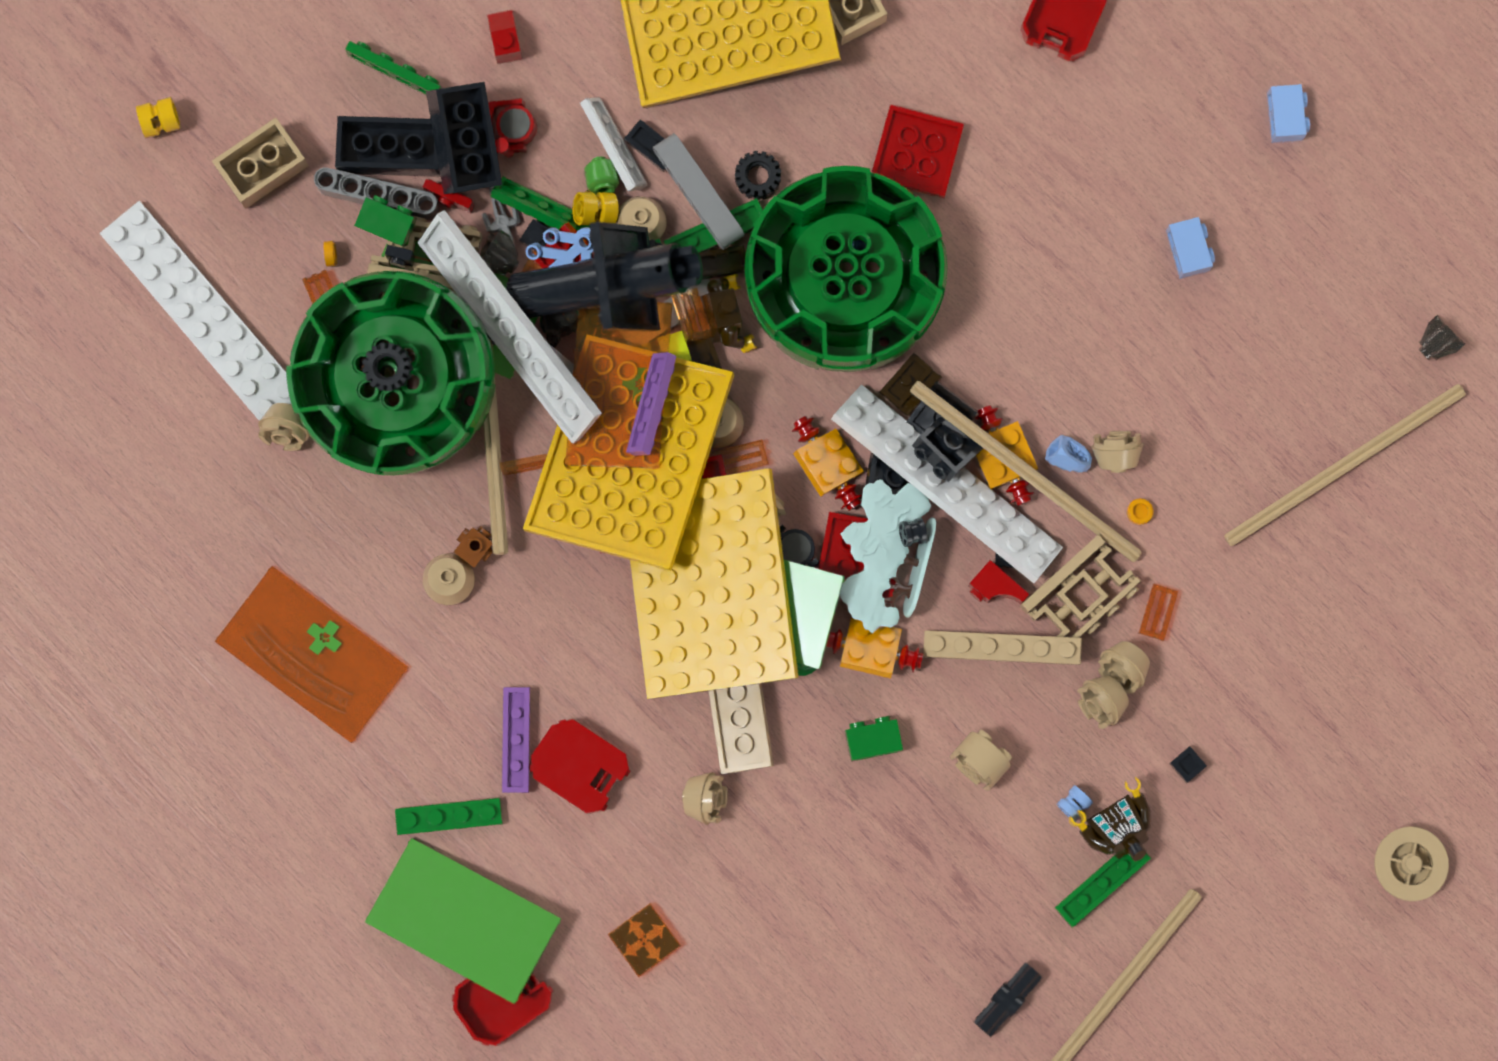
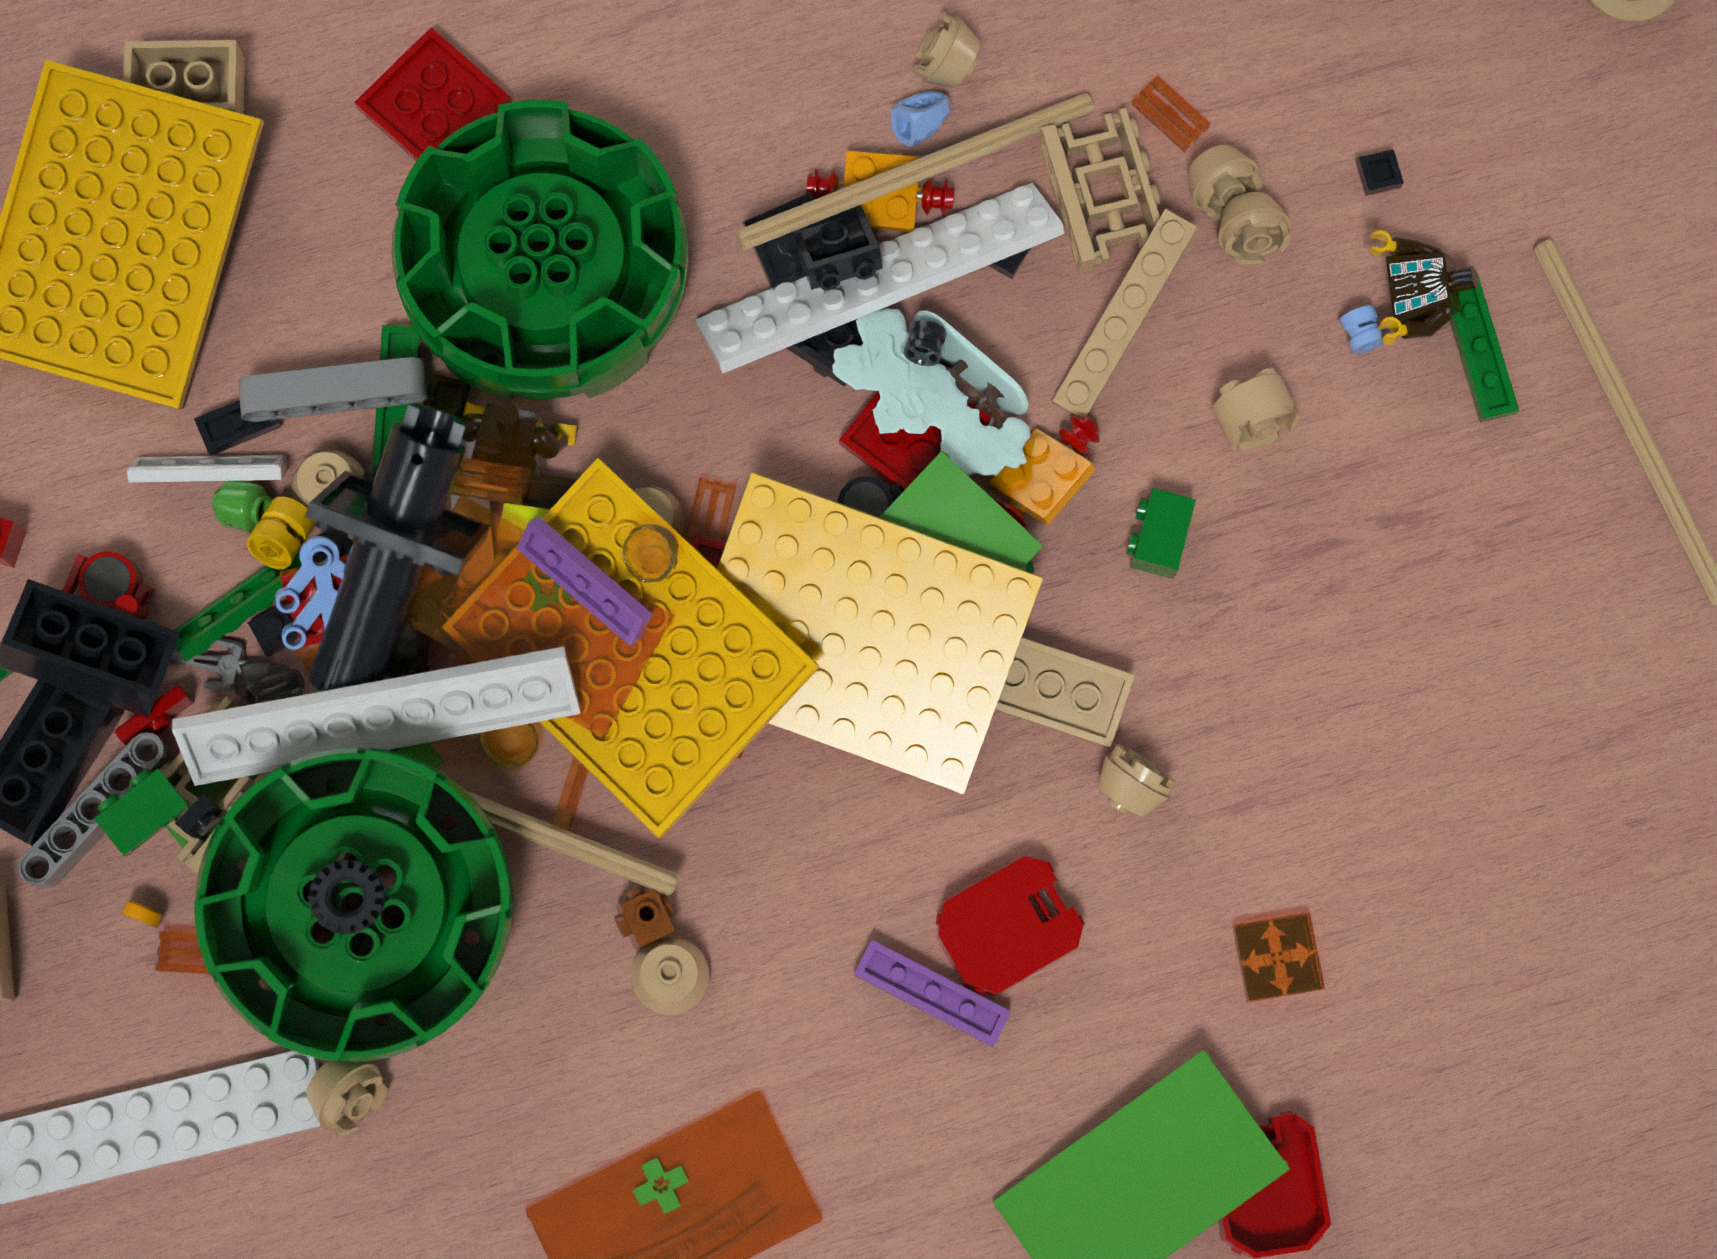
camera: 70 degrees left, 5 degrees down
(448, 816) = (988, 1136): green plate -> none
(534, 414) = (510, 747): none -> clear yellow hair
(686, 434) = (651, 553): none -> clear yellow hair
(753, 160) = (345, 290): black tyre -> none
(828, 462) = (775, 410): light orange plate -> none
(899, 386) = (725, 265): dark brown plate -> none
(994, 583) = (1034, 284): red arch -> none
(1007, 999) = (1572, 534): black piece -> none
(1140, 511) = (1033, 71): light orange tile -> none

